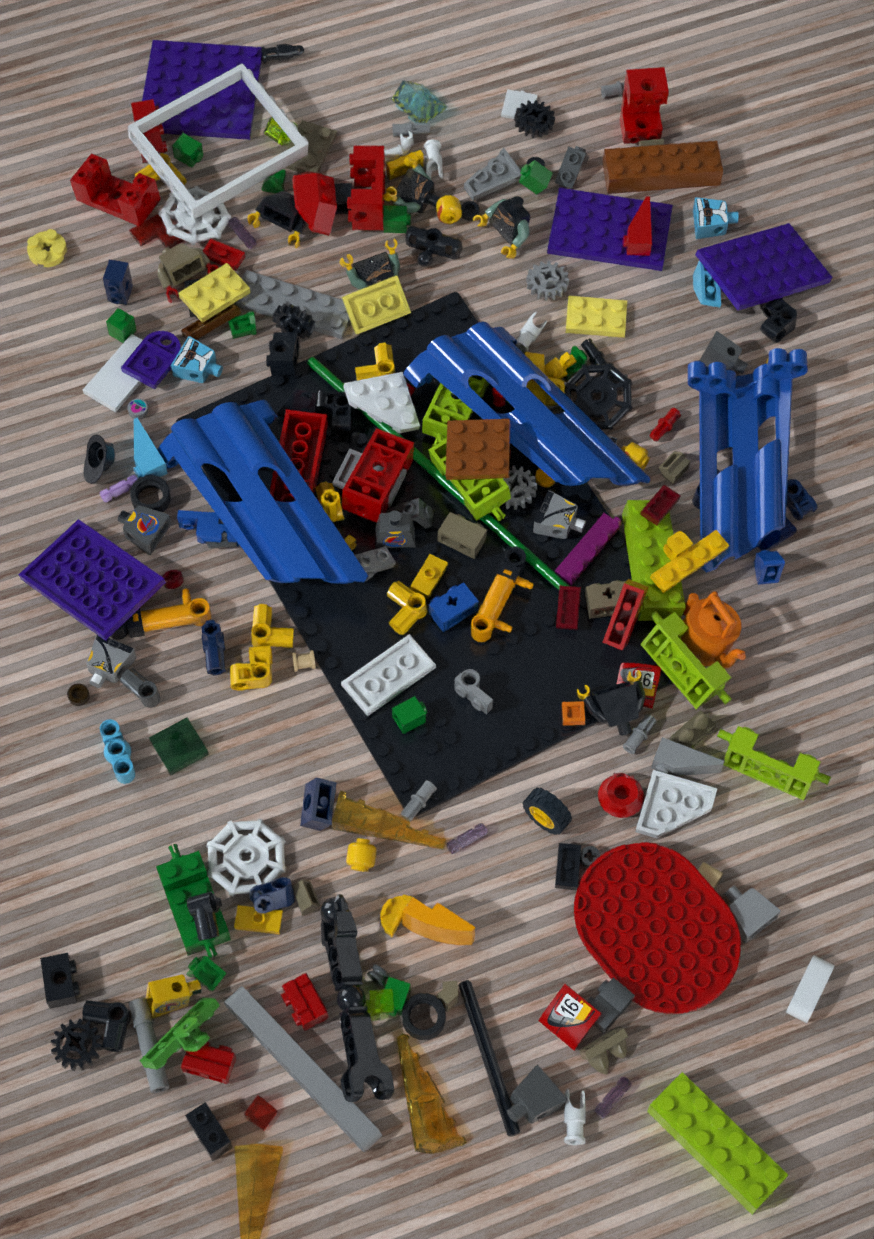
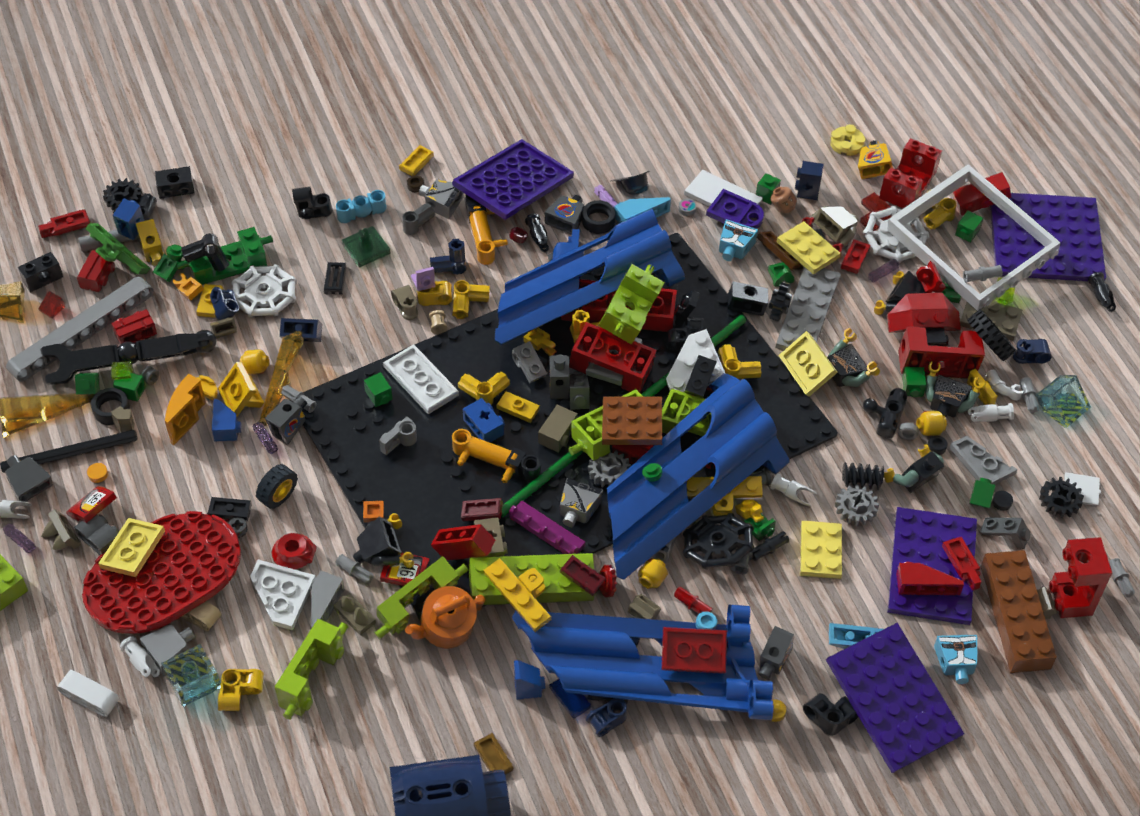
camera: 90 degrees right, 10 degrees down
(42, 692) = (416, 160): none -> yellow plate
(86, 221) = (874, 160): none -> yellow torso
(112, 809) = (311, 205): none -> black piece
(121, 1113) = (64, 223): none -> red hinge
(142, 310) = (783, 199): none -> nougat head
(145, 1013) = (126, 217): none -> blue brick
(171, 557) = (537, 231): none -> black piece
(193, 957) = (174, 252): none -> green plate
(227, 786) = (333, 289): none -> black tile
(240, 943) = (188, 287): none -> light orange plate
(257, 665) = (424, 279): none -> lavender bracket
(270, 697) = (405, 301): none -> dark tan piece
(272, 184) = (930, 278): none -> red hips
(278, 134) = (982, 273): none -> light grey pin
(304, 442) = (638, 292): none -> lime brick
(349, 141) = (991, 335): none -> black tyre
(357, 117) = (1034, 351): none -> dark blue piece
(395, 1043) = (87, 383): none -> green brick
(407, 867) = (240, 390): none -> yellow bracket
(413, 390) = (700, 376): none -> black brick
(448, 882) = (224, 423): none -> blue slope
(453, 806) = (286, 419): none -> dark grey torso
(457, 229) = (908, 431): none -> light grey tile
(514, 271) = (862, 475): none -> black piece
(518, 1020) = (97, 472): none -> light orange tile
(542, 433) = (652, 472): none -> green plate
(616, 198) = (963, 561): none -> red hinge
(632, 959) = (131, 547): none -> light yellow plate
(640, 494) = (609, 586): none -> red gear
(703, 404) = (706, 621): none -> medium azure tile
(734, 416) = (694, 650): none -> red tile
(763, 940) = (139, 657): none -> white piece
(786, 880) = (191, 675): none -> clear light blue slope
(803, 842) = (247, 683): none -> yellow piece
(843, 600) = (493, 754): none -> pearl gold tile

